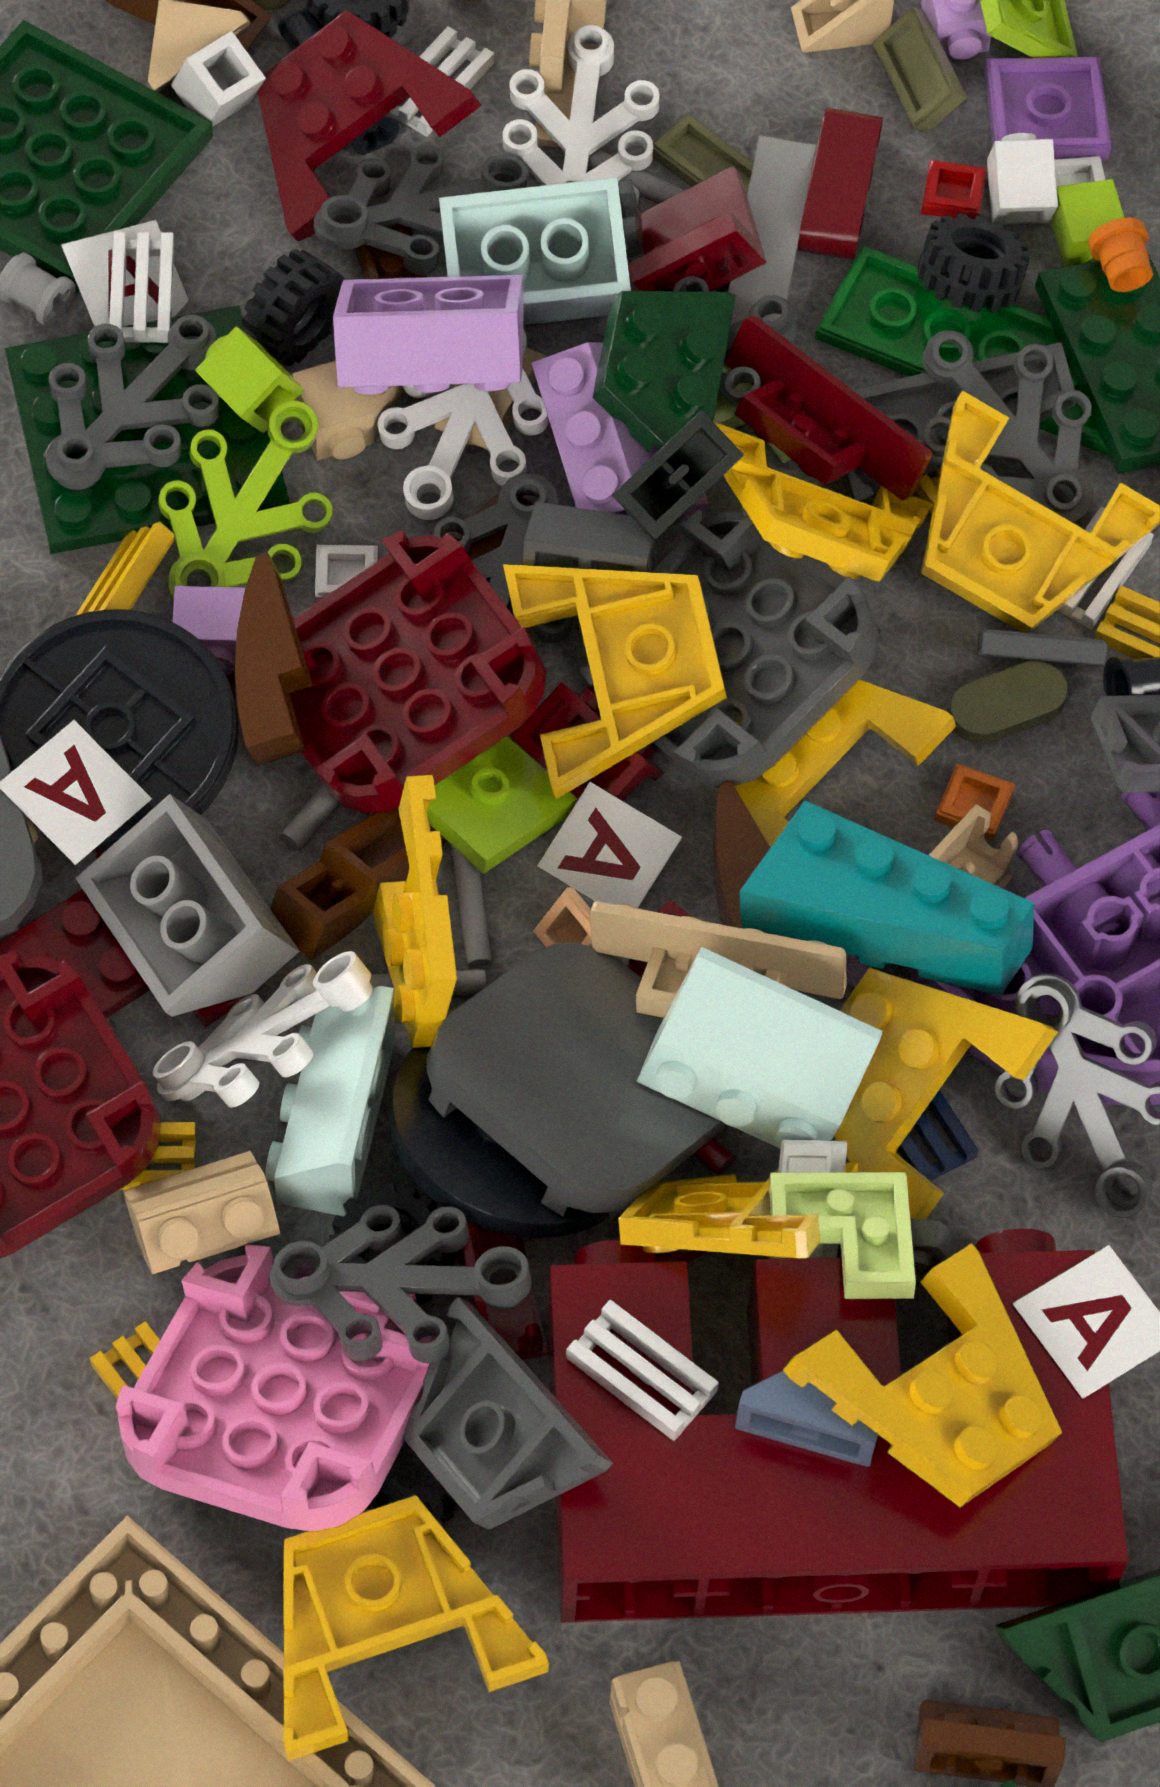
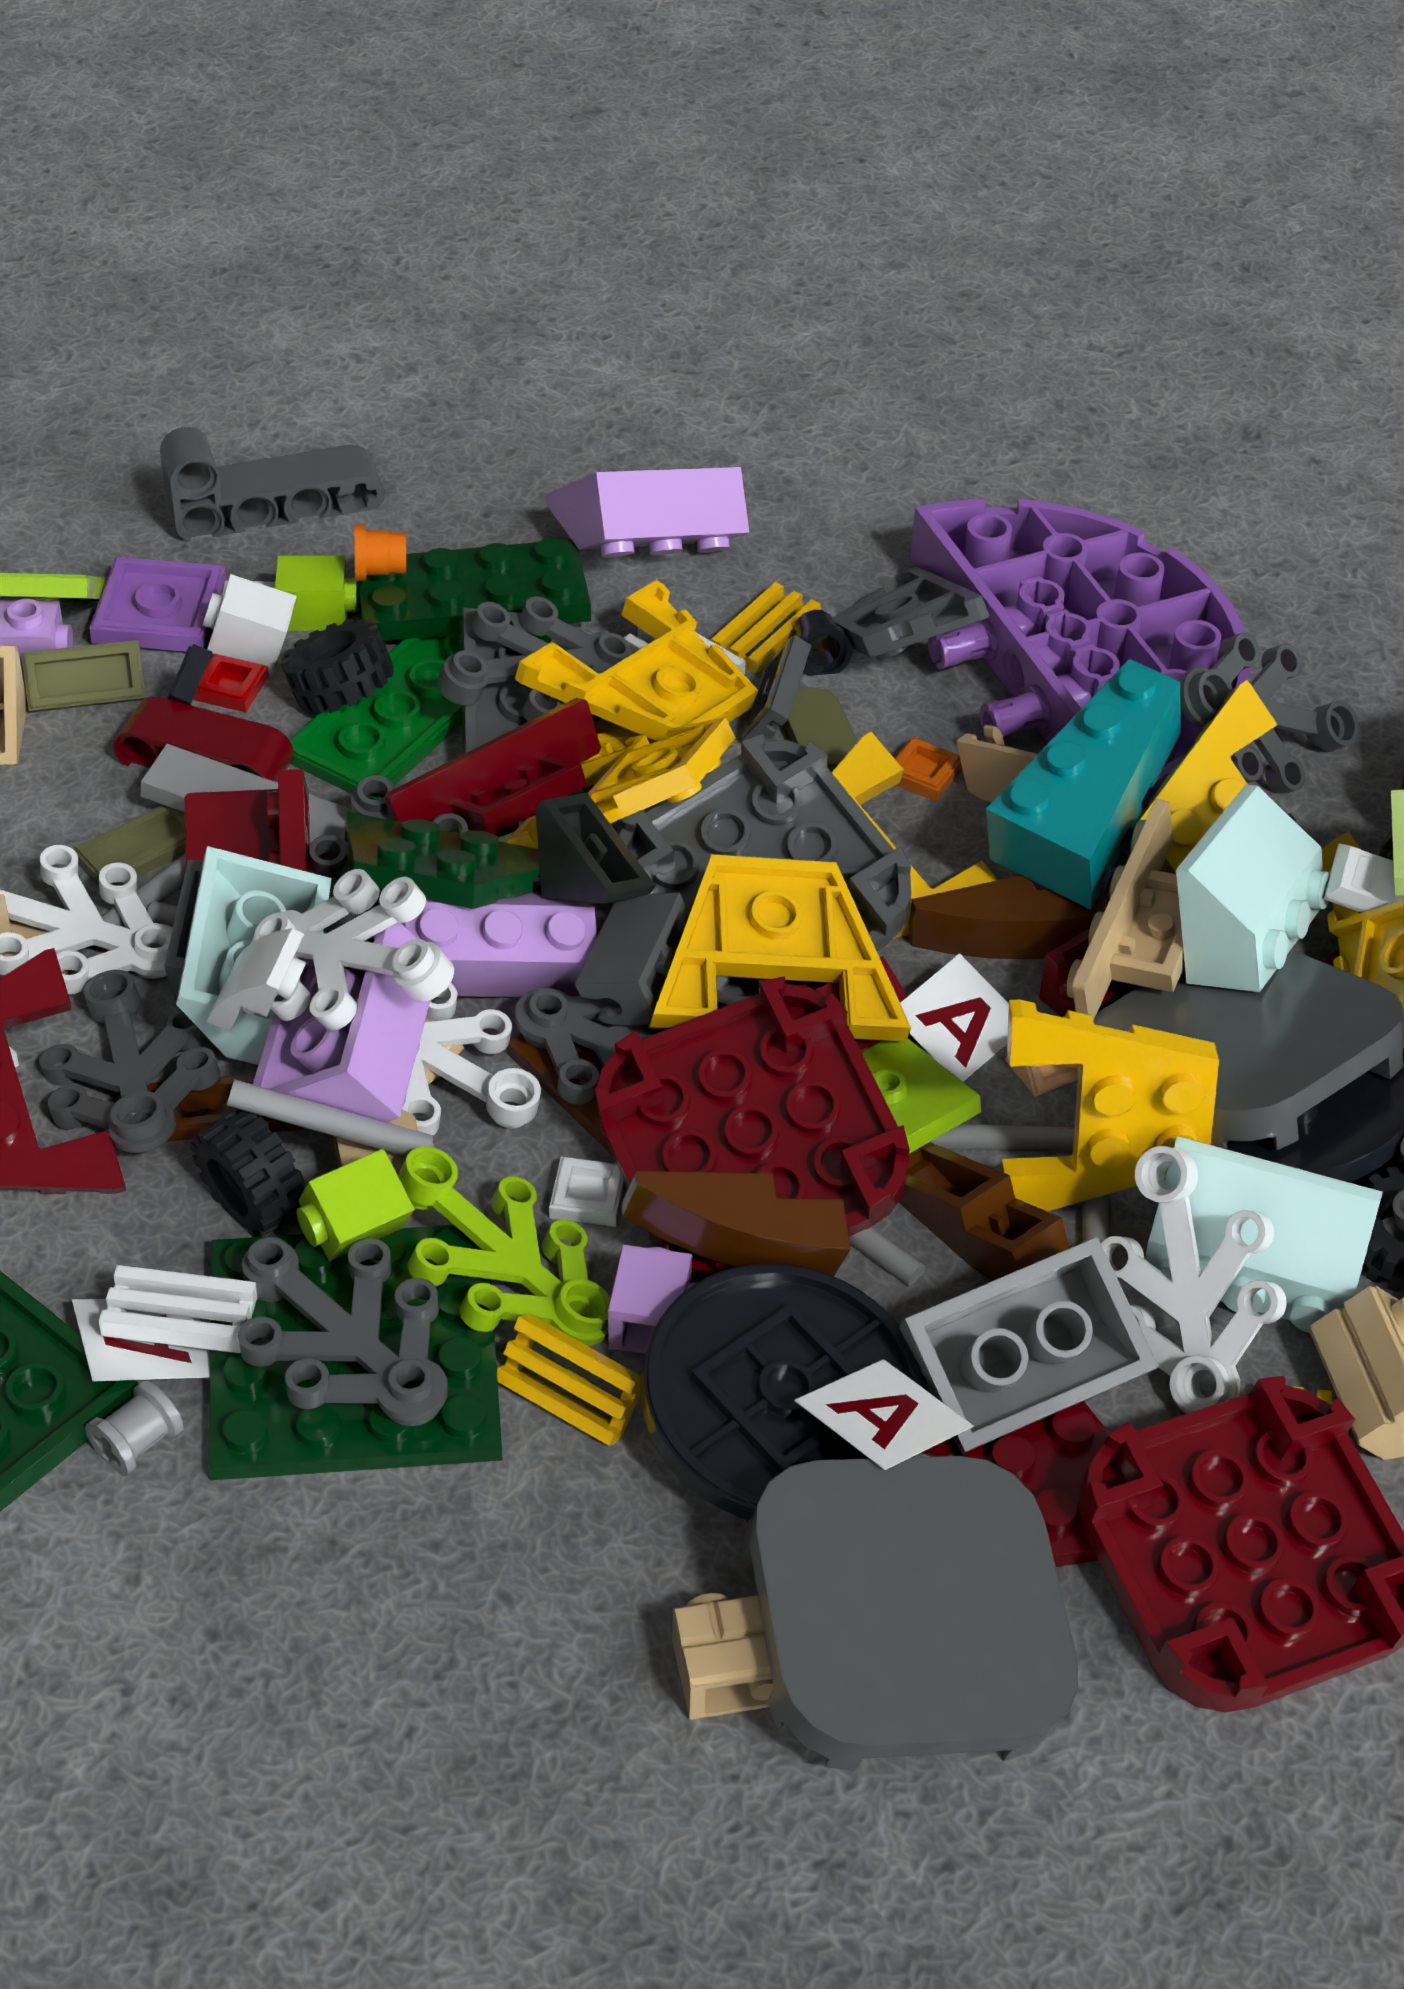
camera: 80 degrees left, 15 degrees down
(324, 346) = (326, 1119): none -> light grey bar
(433, 239) = (257, 977): none -> white slope
(507, 260) = (416, 965): none -> white plant
(911, 145) = (190, 674): none -> black tile

